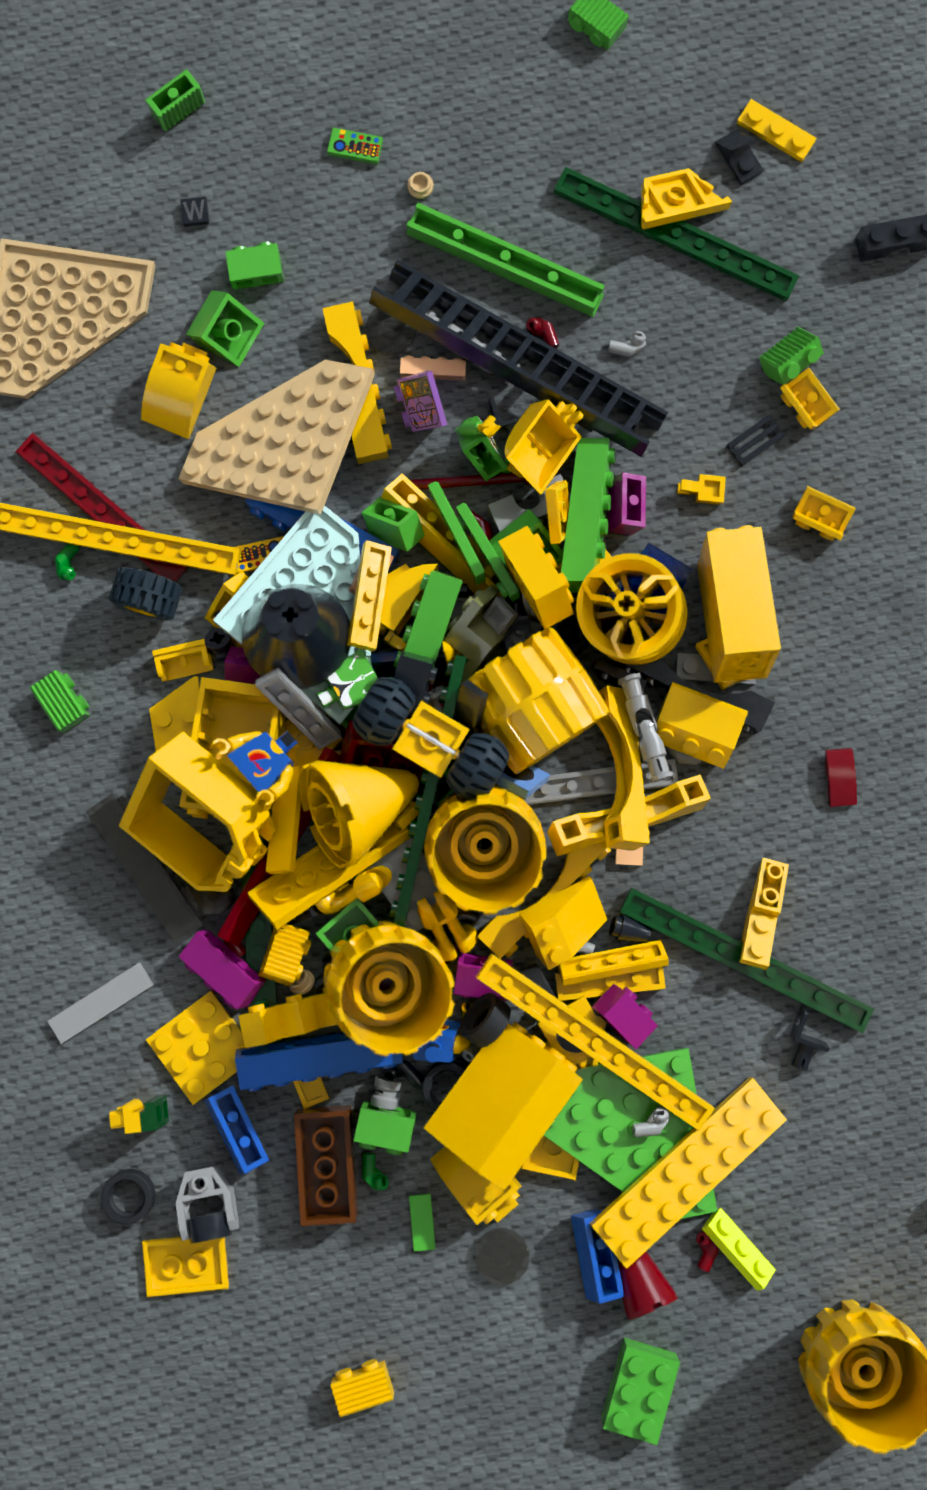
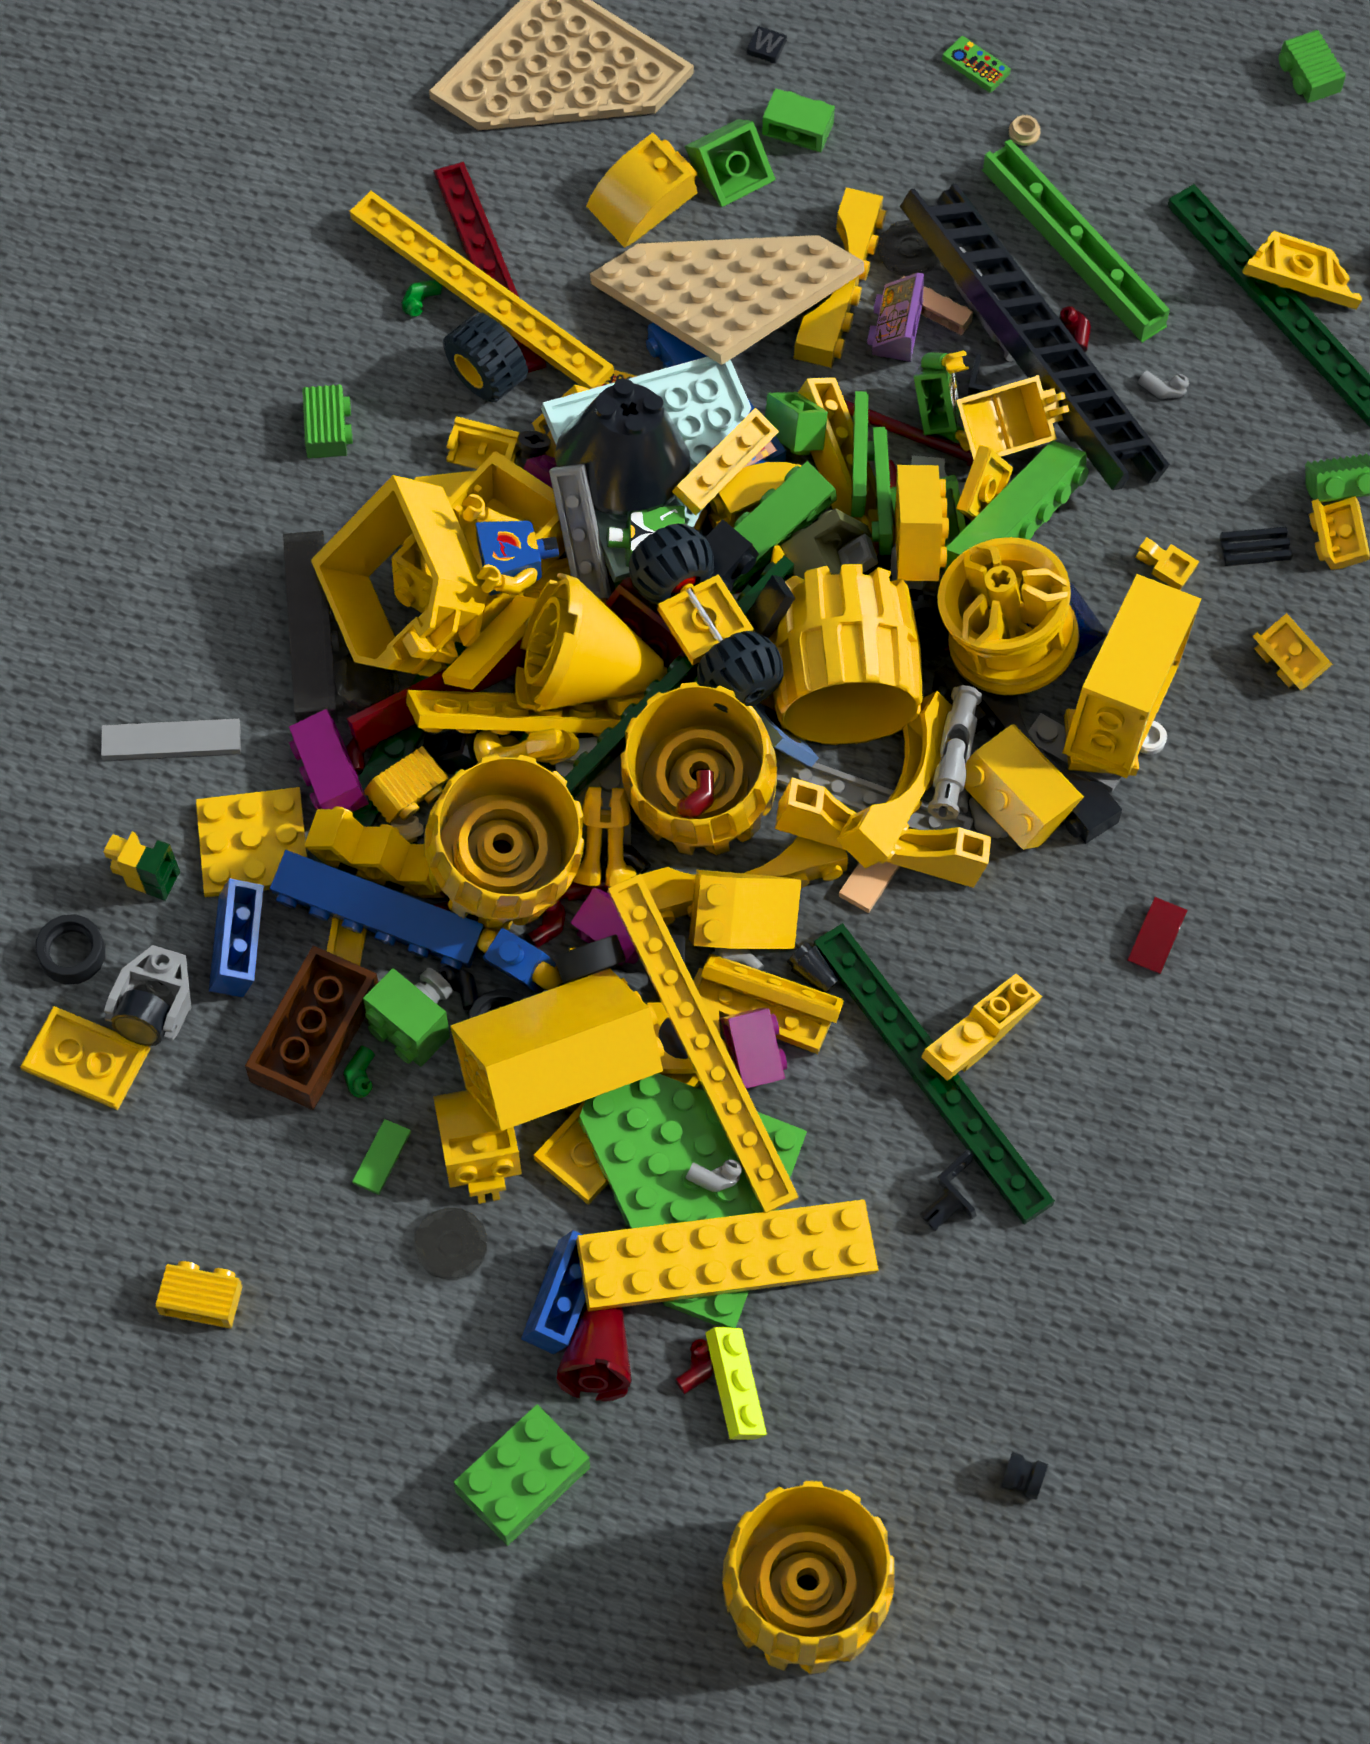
camera: 25 degrees right, 20 degrees down
(504, 878) = (701, 798): none -> dark red arm
(627, 504) = (1072, 527): magenta brick -> none

